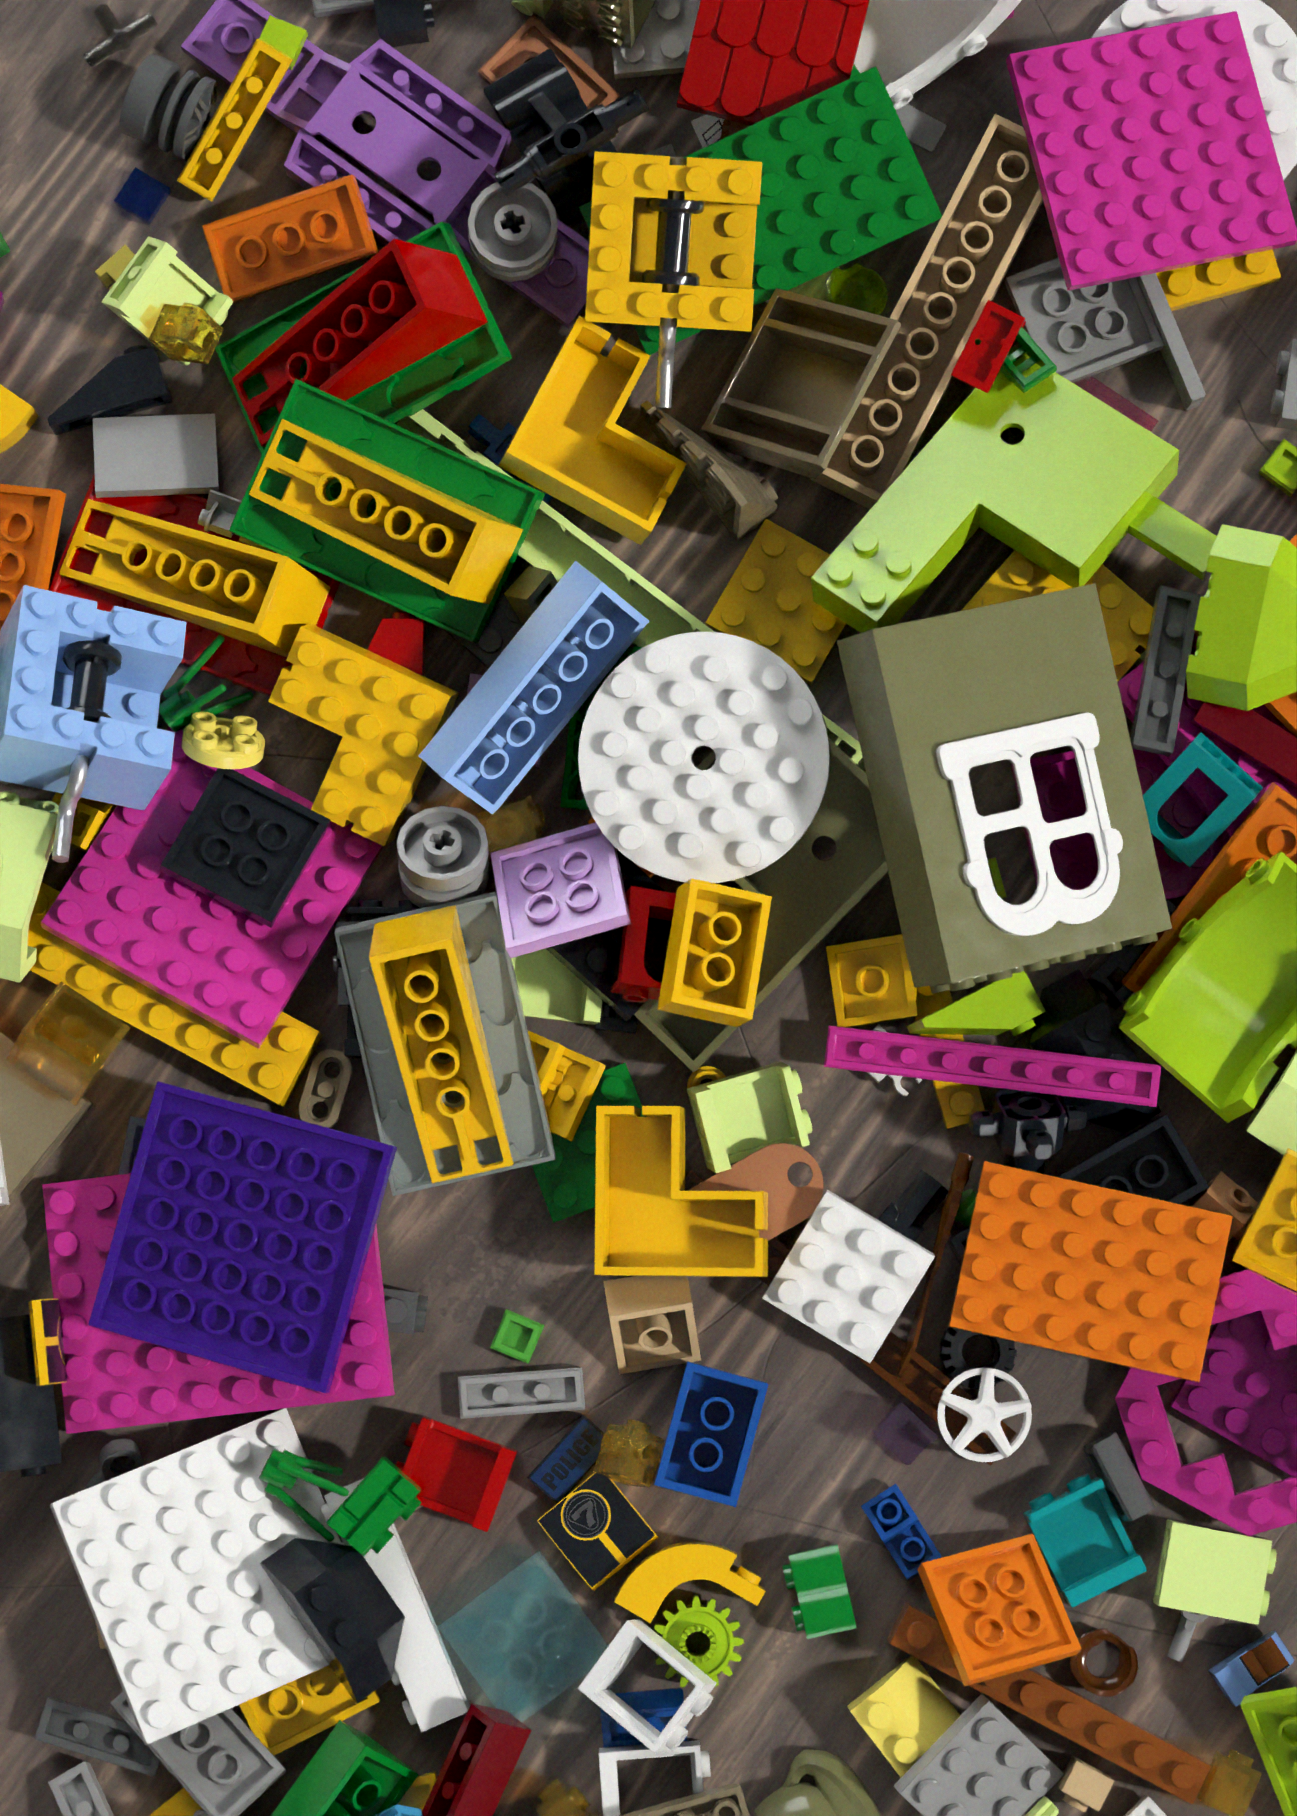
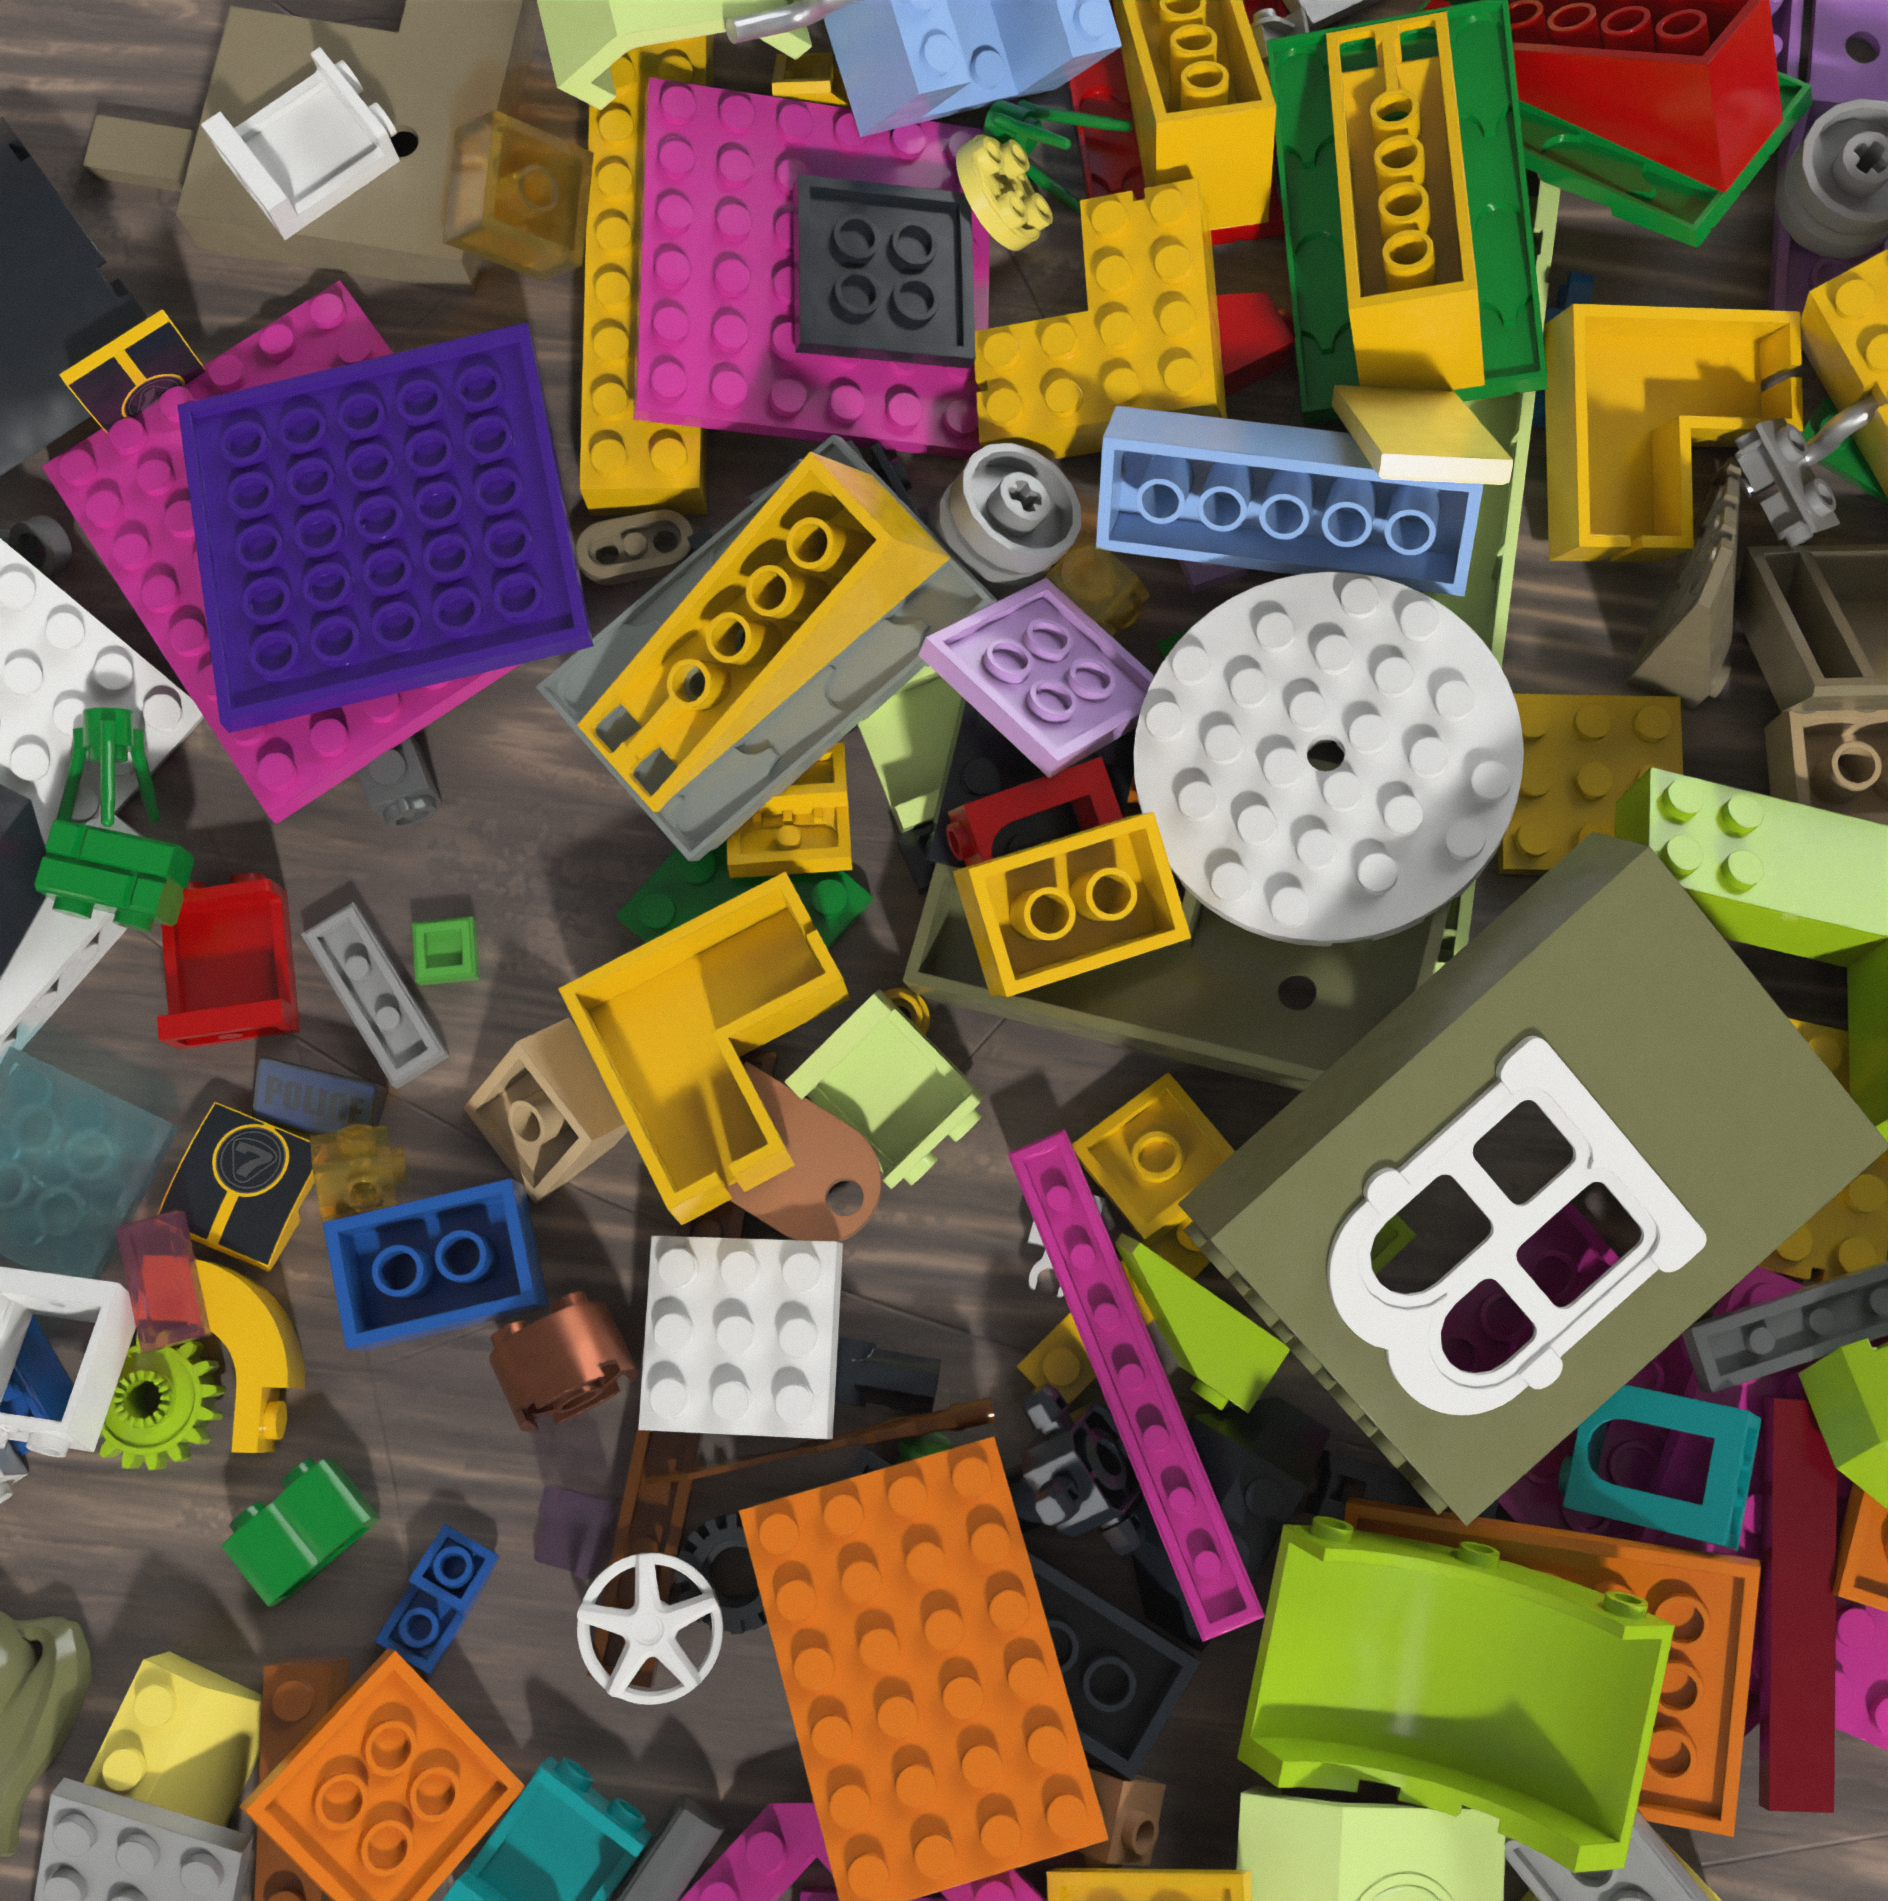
camera: 65 degrees right, 5 degrees down
(546, 596) = (1421, 435): none -> light yellow tile
(636, 1597) = (163, 1281): none -> clear pink tile
(696, 384) = (1778, 455): none -> light grey hinge
(807, 1388) = (561, 1361): none -> copper brick

